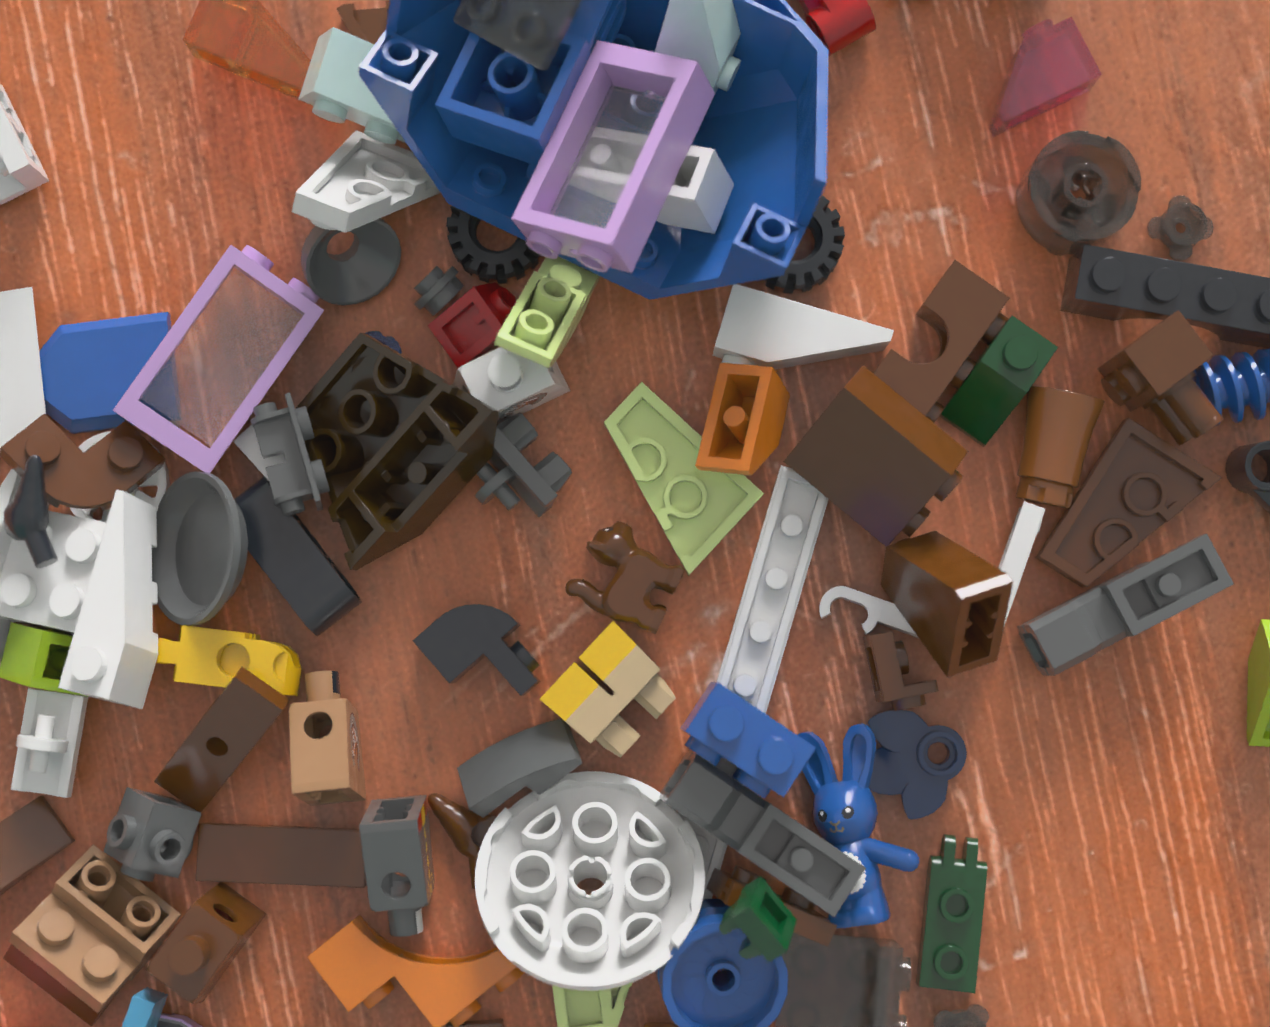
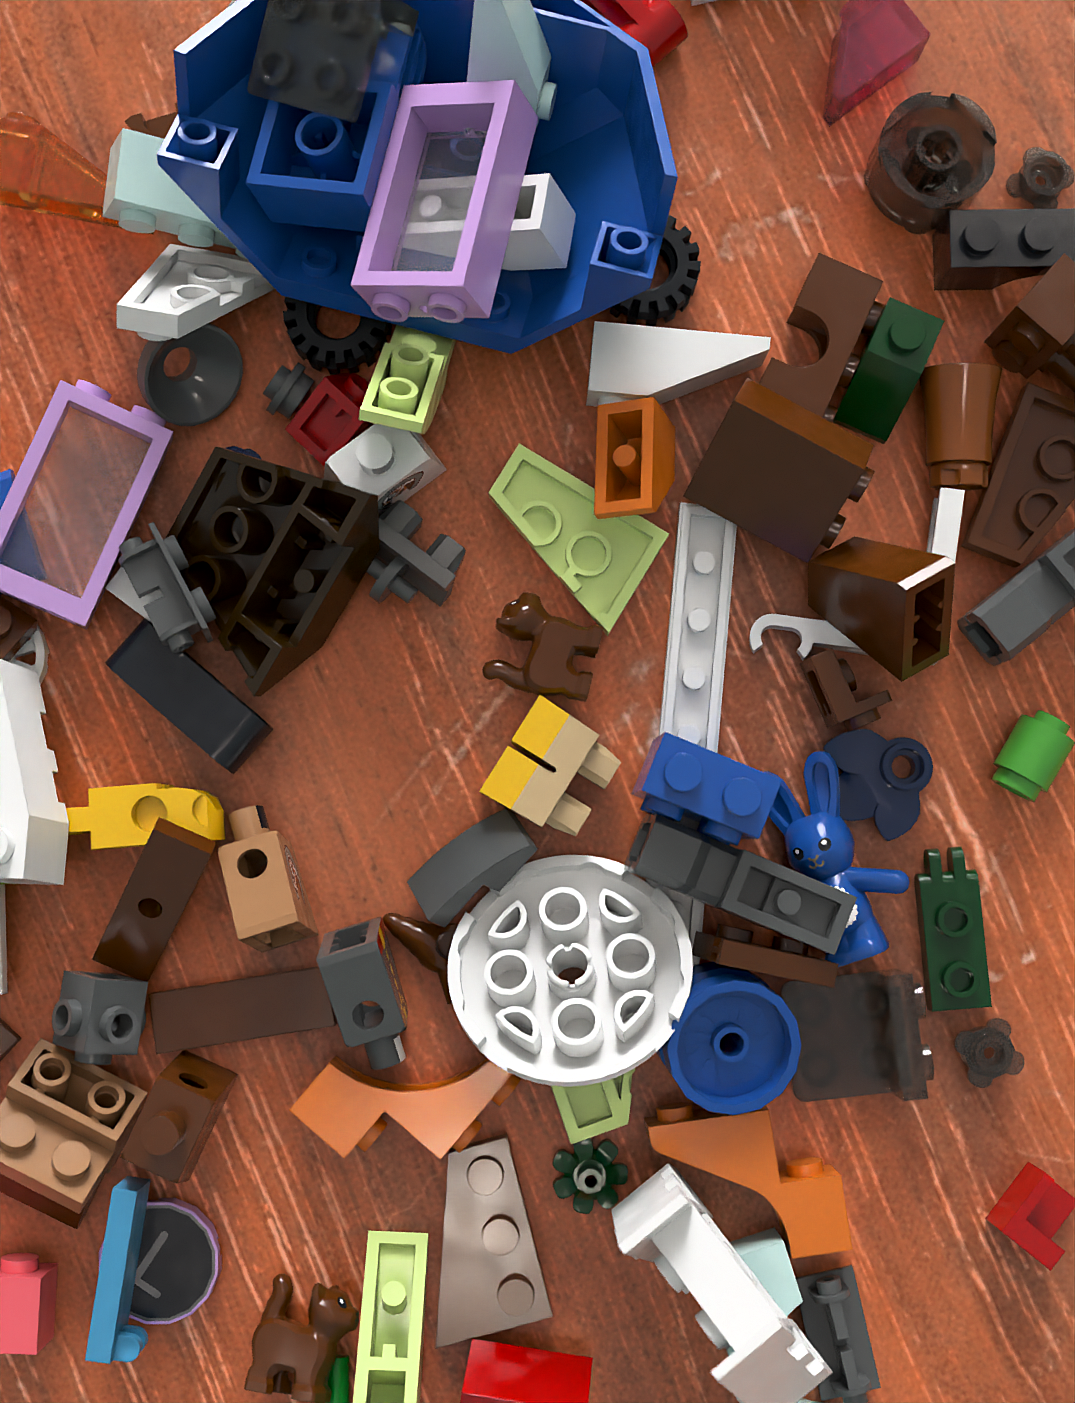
camera: 15 degrees left, 0 degrees up
(198, 548) = (89, 705): dark grey piece -> none
(468, 635) = (391, 741): black brick -> none
(763, 921) = (763, 972): dark green tile -> none
(1061, 767) = (1033, 755): none -> bright green brick

